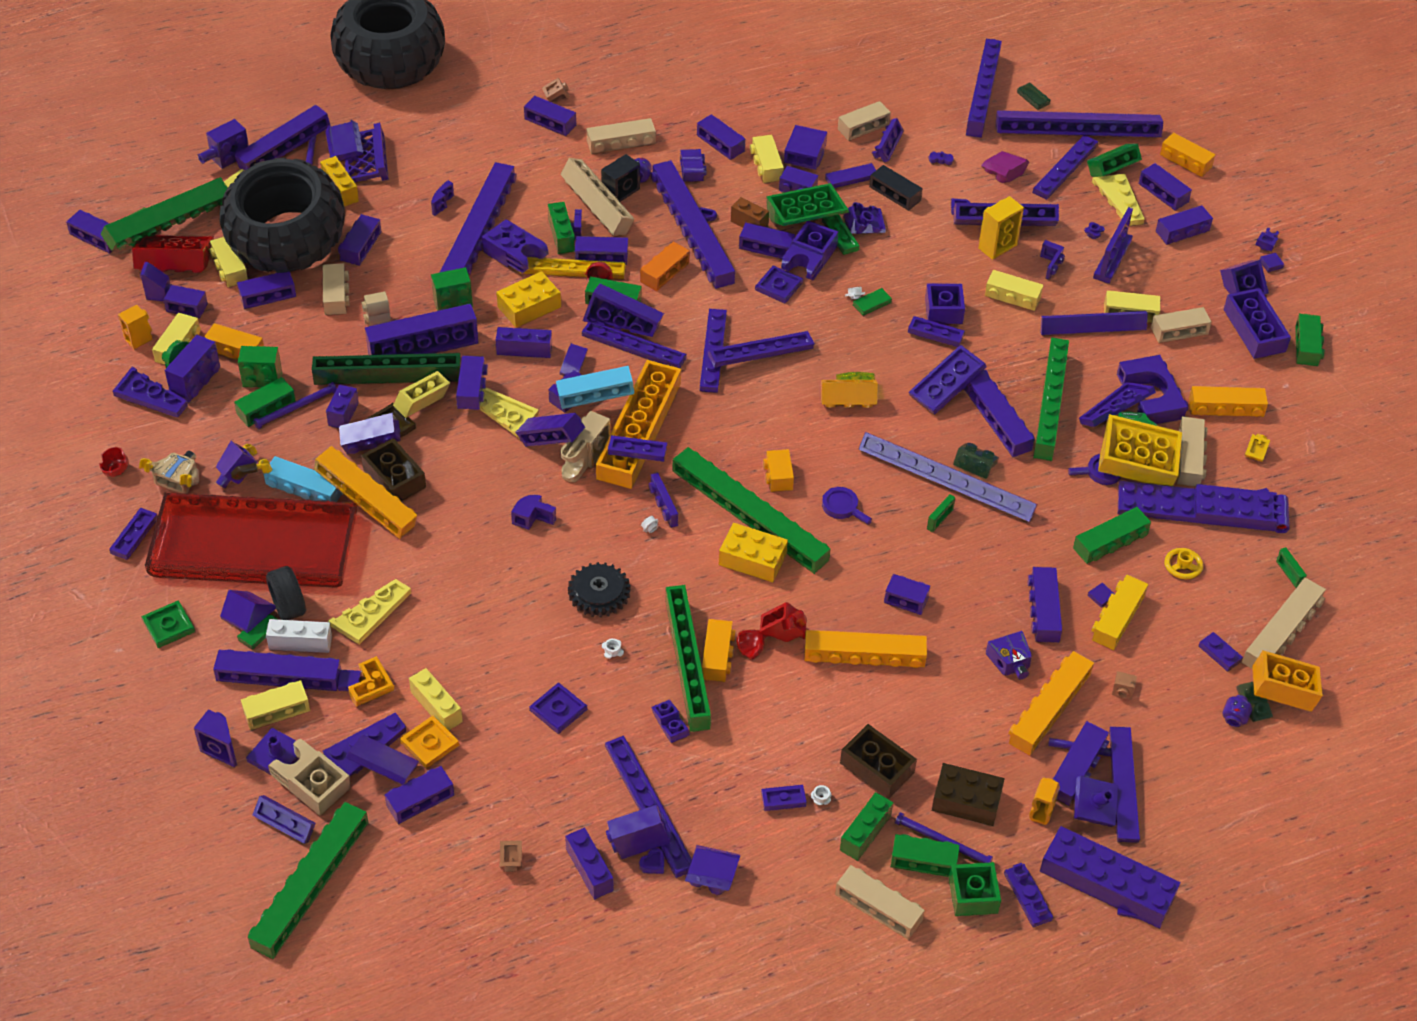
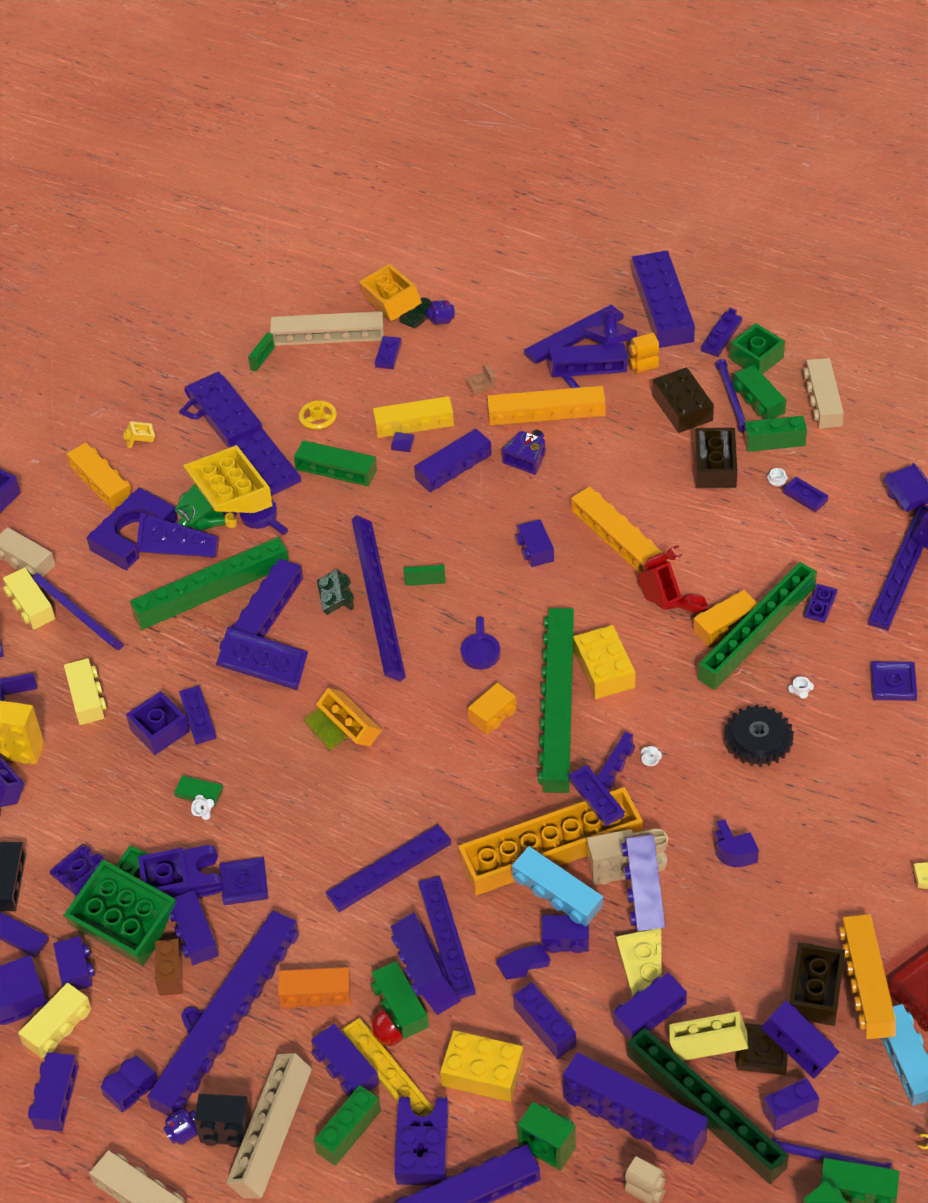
camera: 125 degrees left, 0 degrees up
(577, 224) = (323, 1116): dark purple plate -> none
(760, 349) = (358, 820): dark purple plate -> none
(1192, 451) = (170, 473): tan brick -> none

